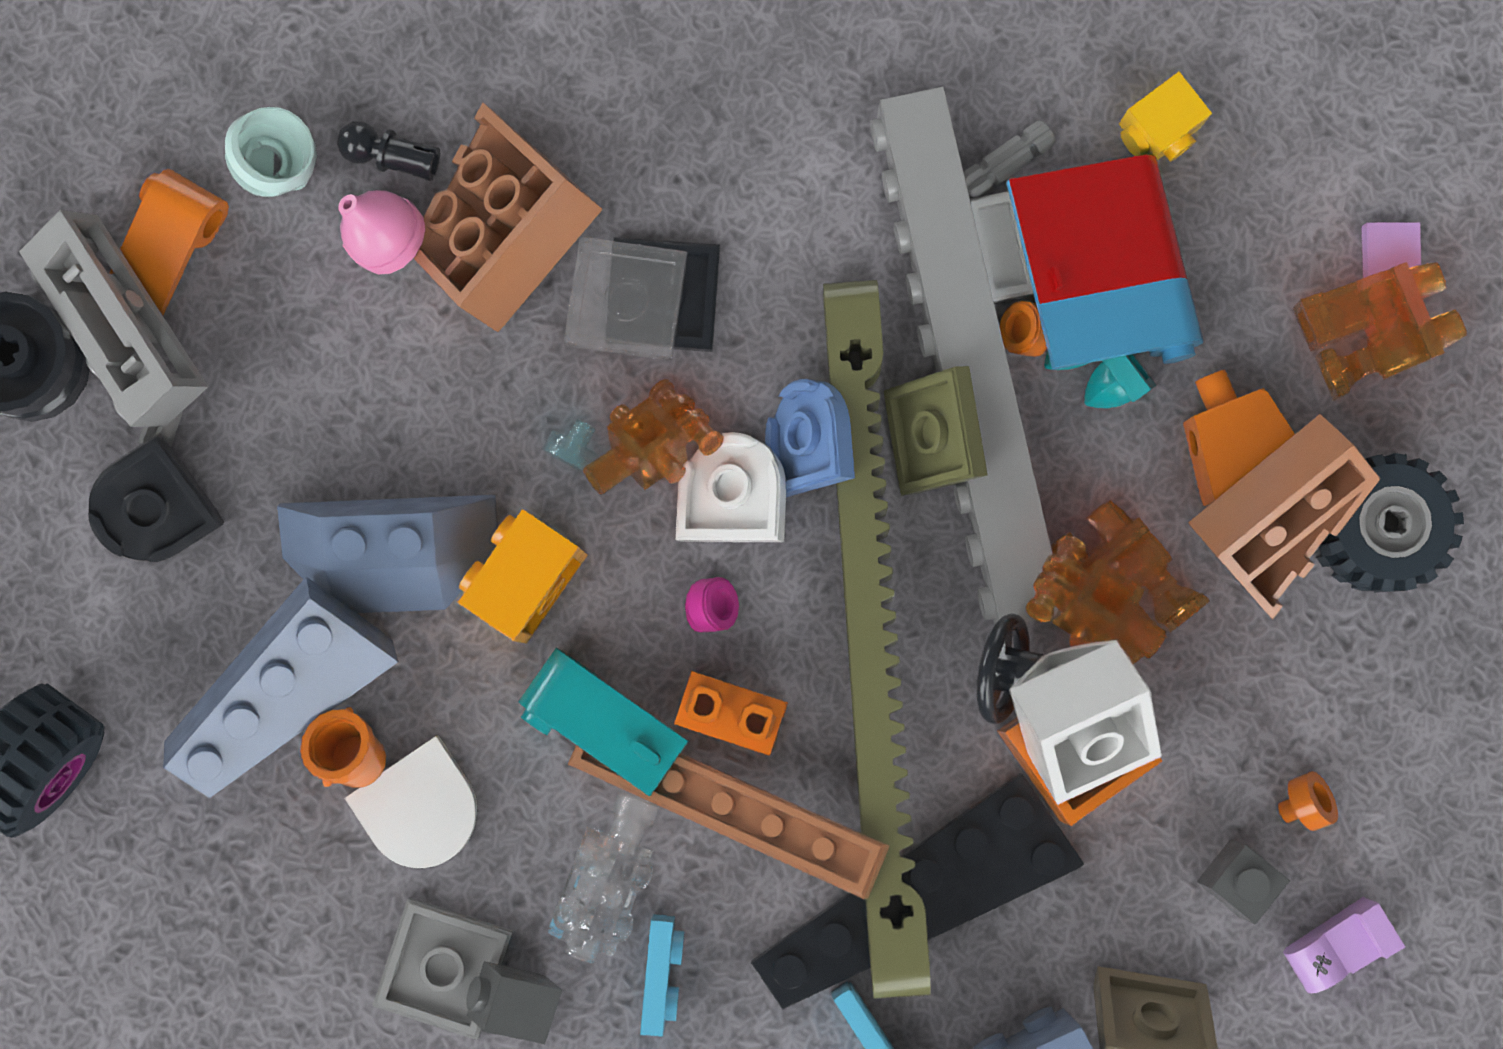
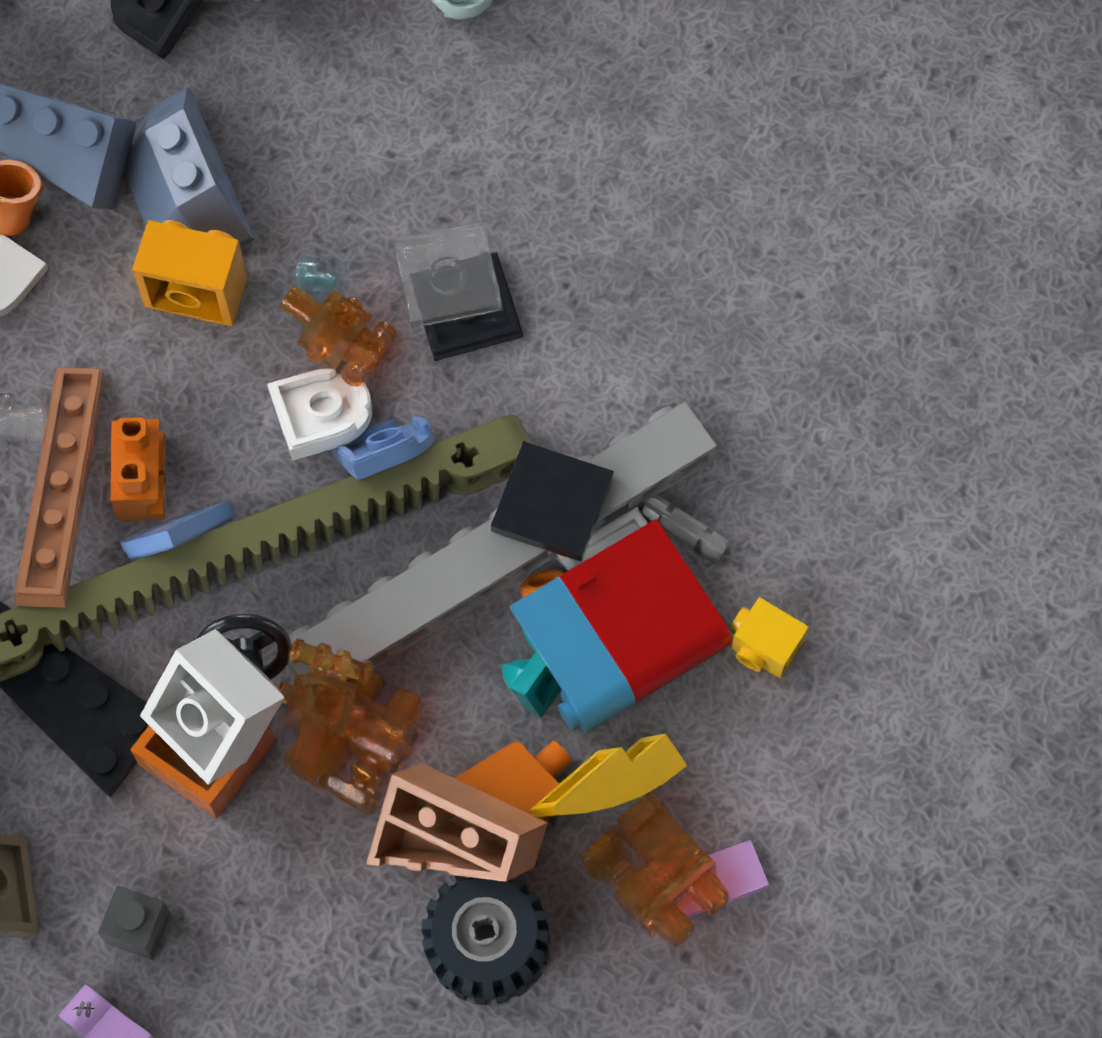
camera: 70 degrees right, 15 degrees down
(361, 143) = (498, 45): black pin -> none
(380, 230) = (432, 78): bright pink helmet -> none
(500, 222) = (472, 162): nougat wedge -> none
(600, 721) = (96, 372): teal door -> none
(711, 605) = (223, 428): dark pink tile -> none
(826, 698) = (176, 531): none -> medium blue tile
(935, 431) = (424, 539): olive tile -> none
(948, 280) = (552, 501): none -> black tile
(1275, 337) = (613, 778): none -> yellow slope
(1309, 802) = (224, 962): orange tile -> none

